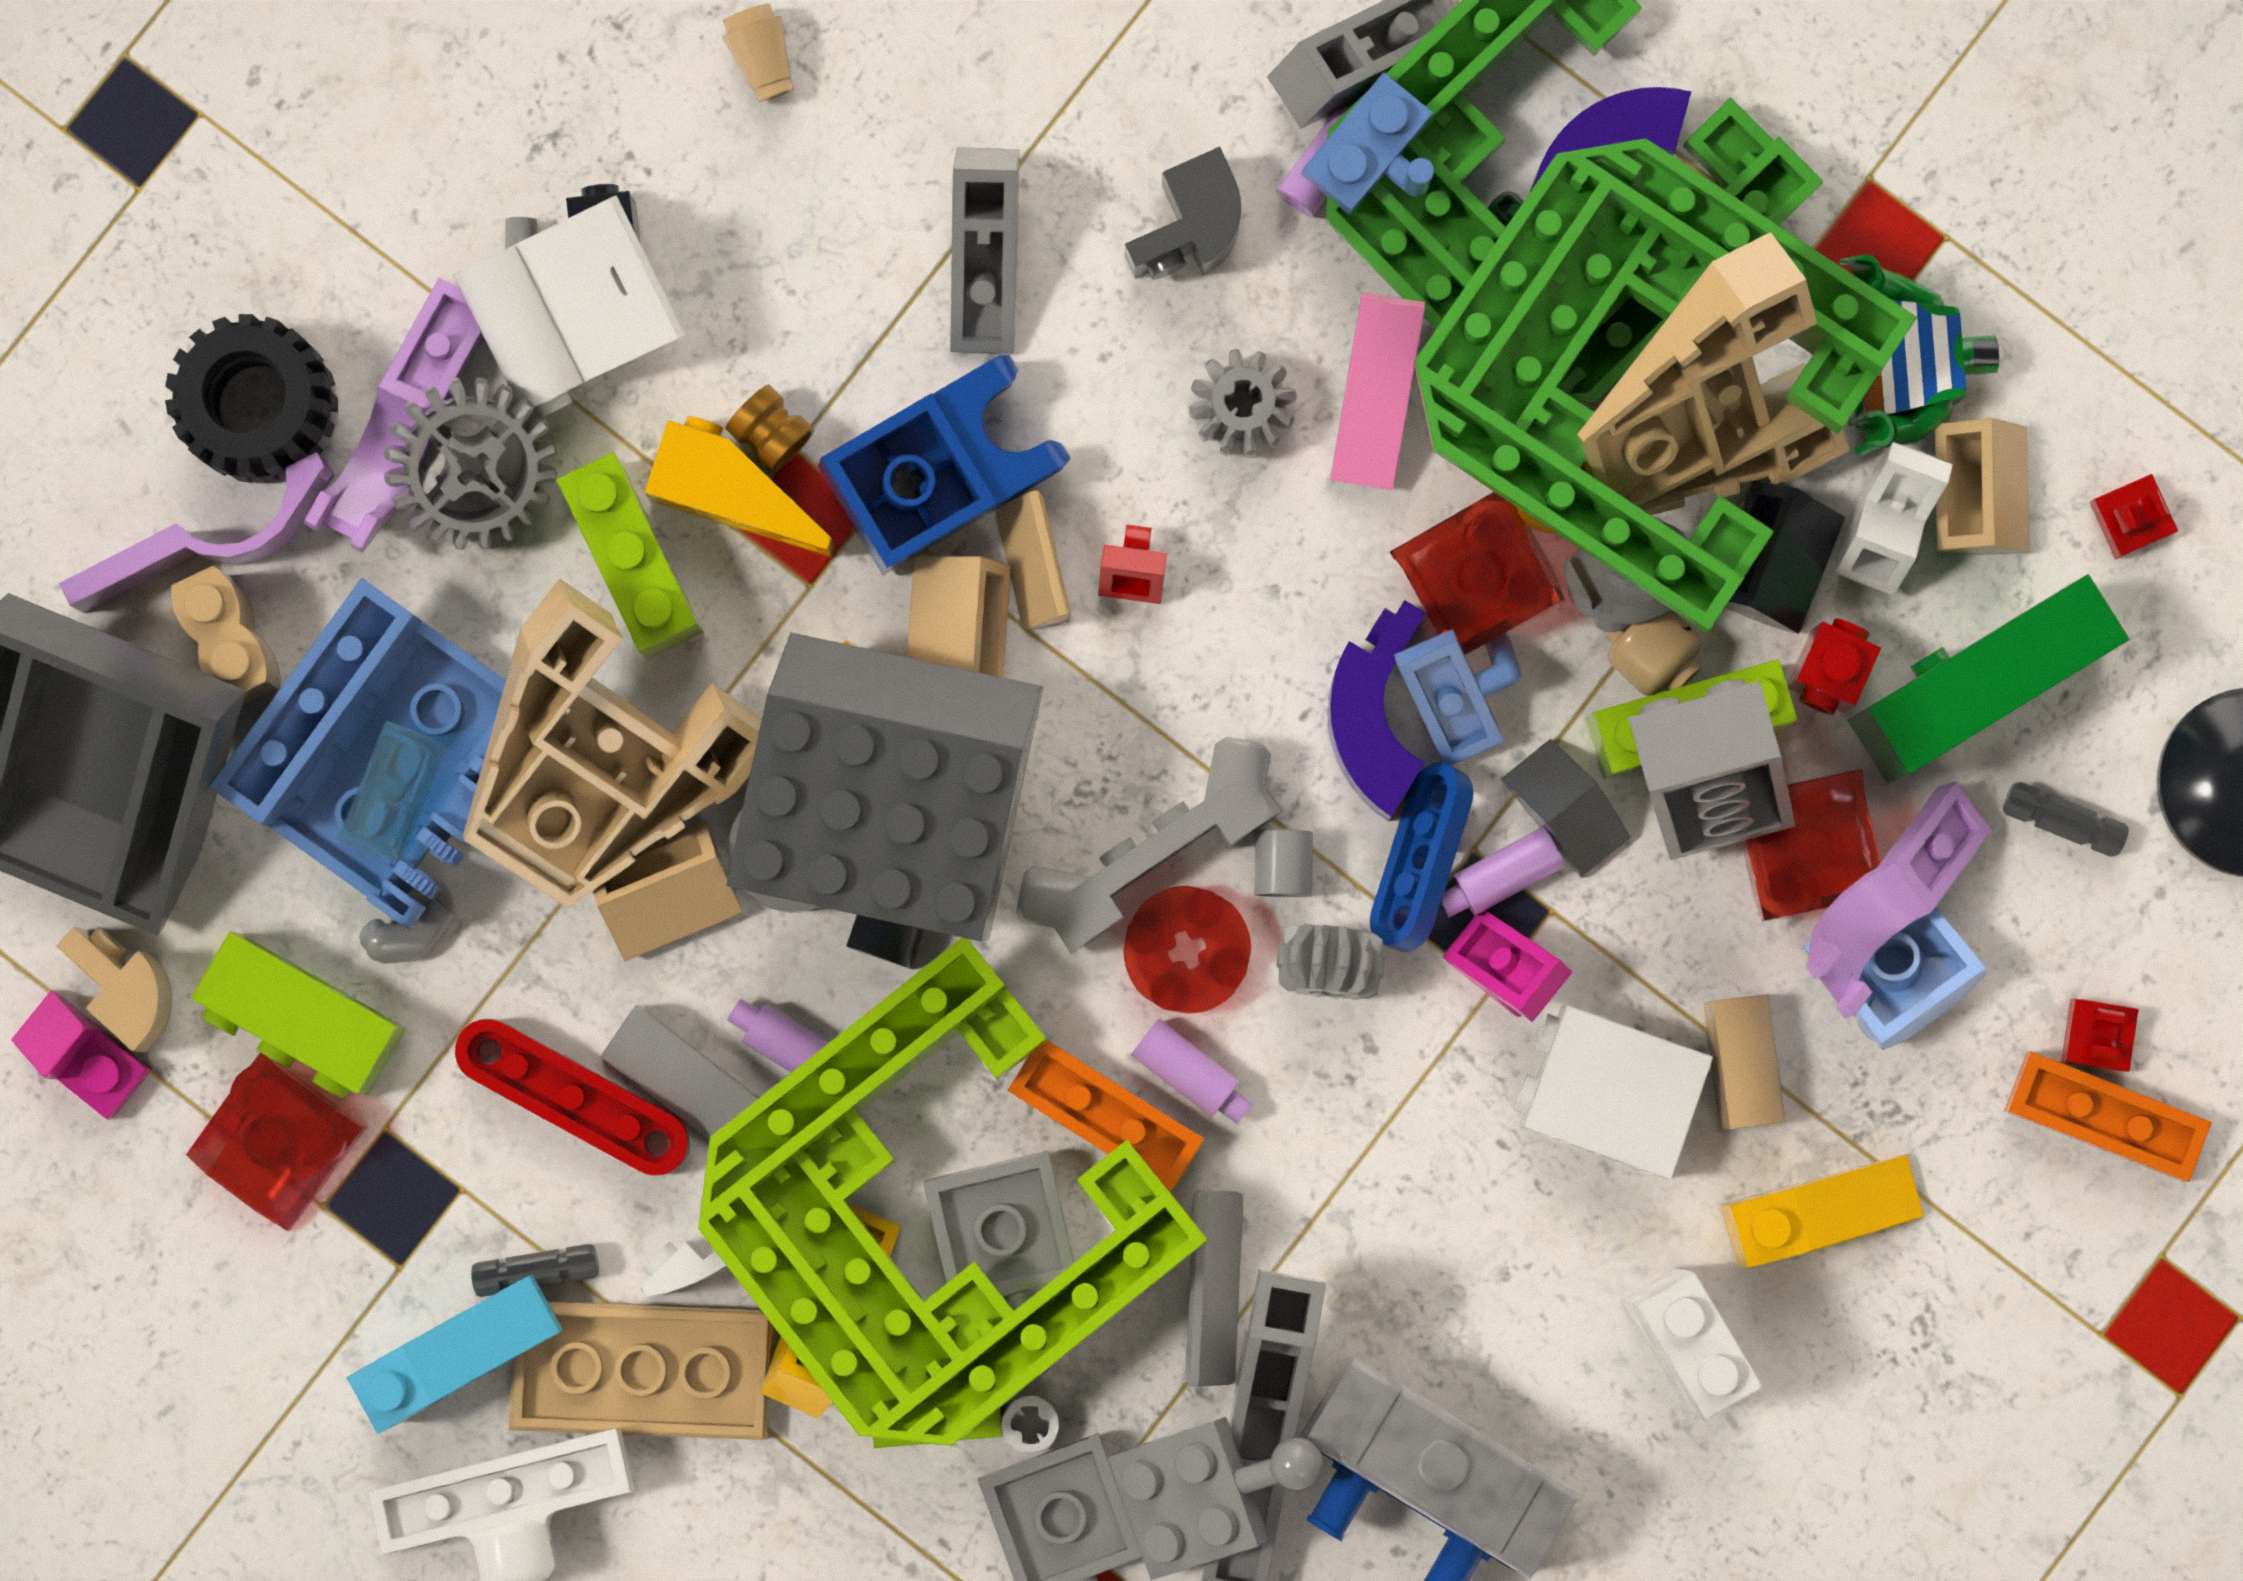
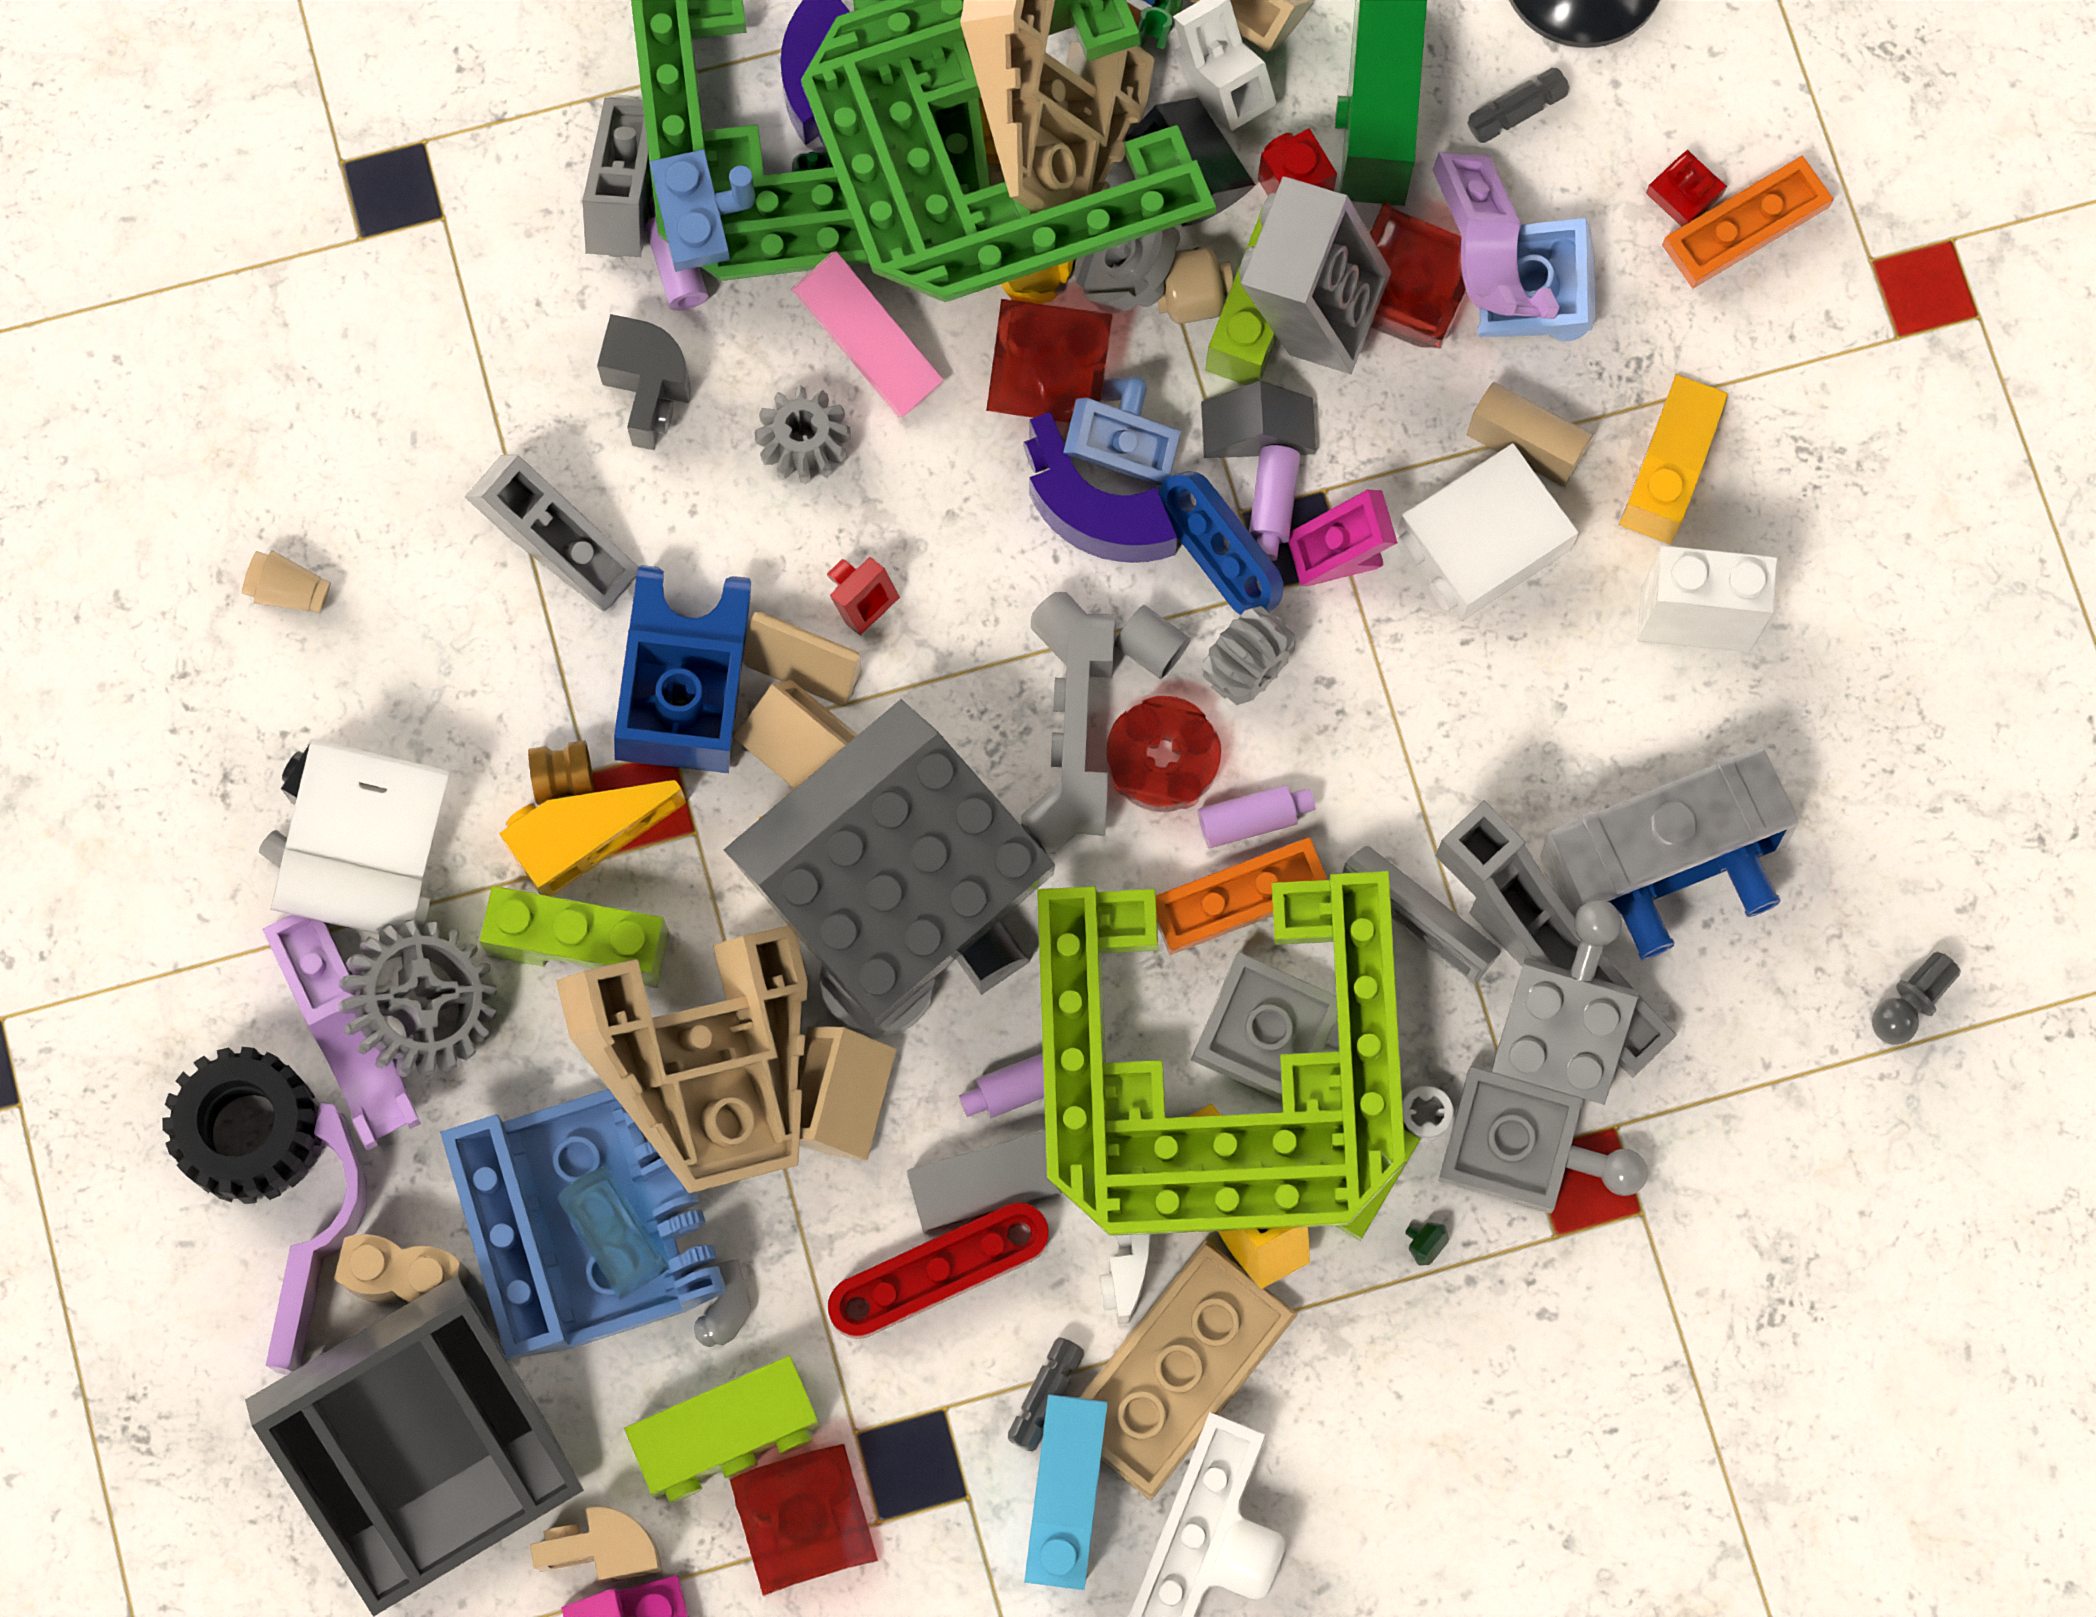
camera: 55 degrees left, 10 degrees down
(915, 1508) = (1427, 1242): none -> dark green rock

